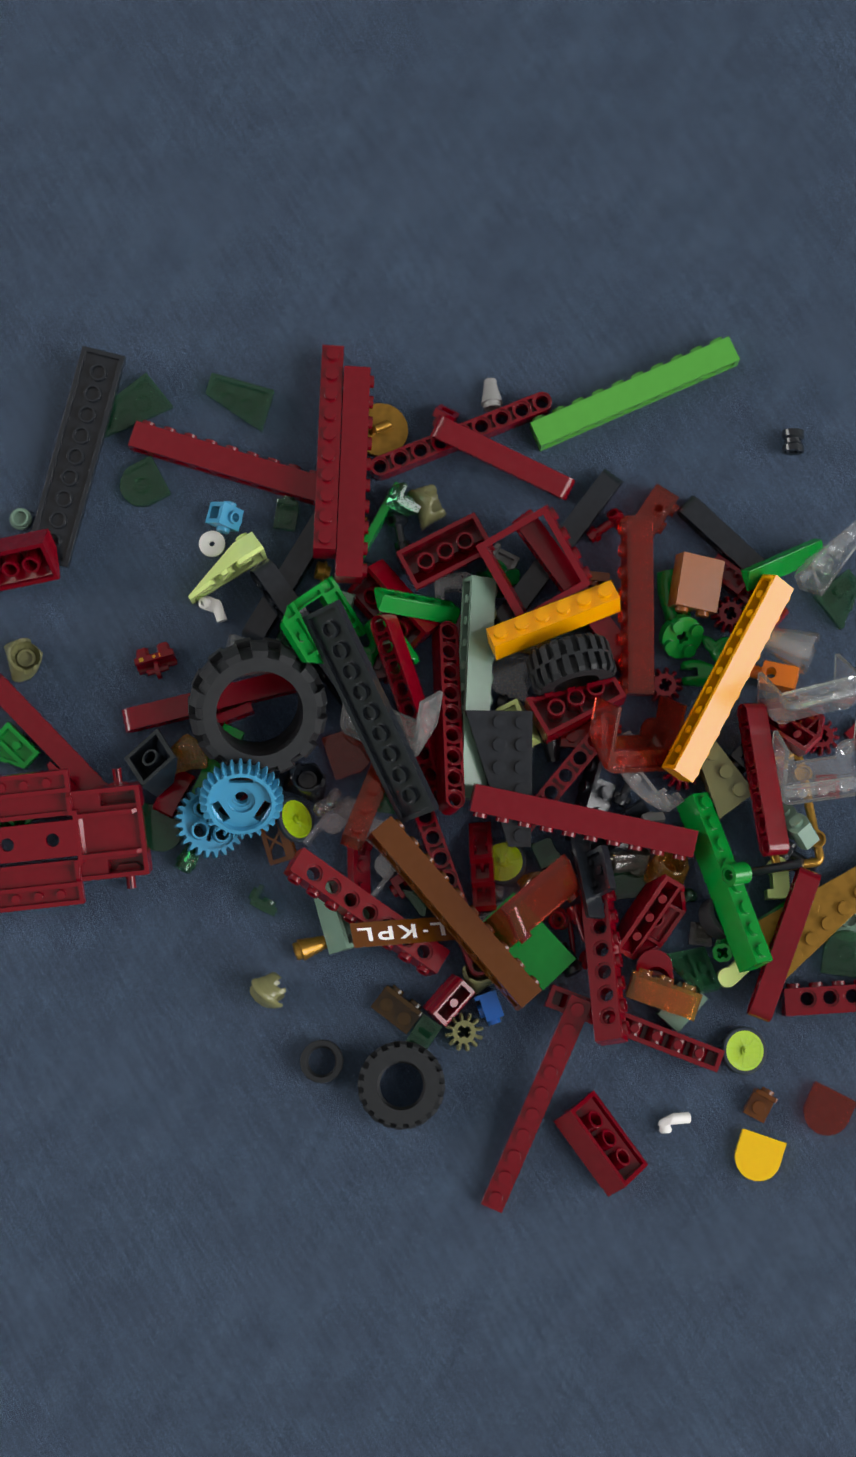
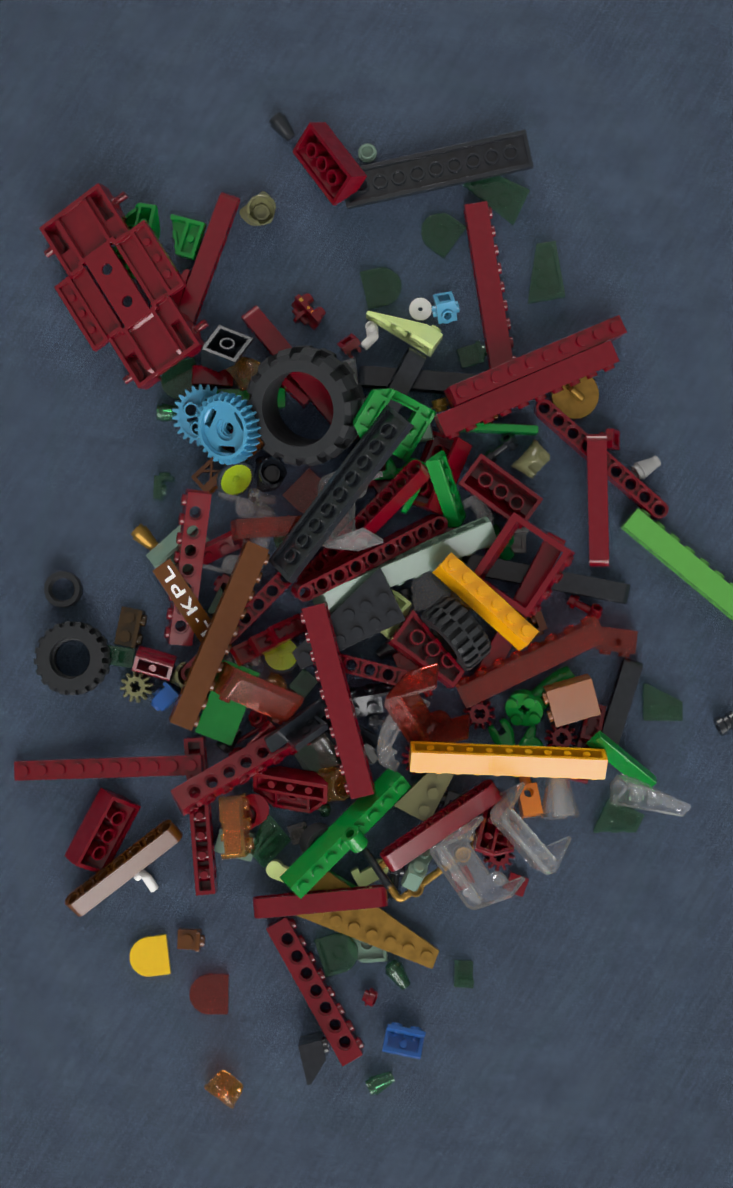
camera: 65 degrees right, 5 degrees up
(168, 573) = (380, 287): none -> clear green tile
(212, 634) = (349, 343): none -> dark red tile
(266, 990) = (93, 521): olive hair -> none
(401, 502) = (522, 439): clear green bracket -> none
(651, 1138) = (123, 868): none -> beam
(725, 955) = (289, 860): green bush -> none
(743, 499) = (660, 706): none -> clear green wing
(744, 1050) = (225, 908): lime wheel -> none

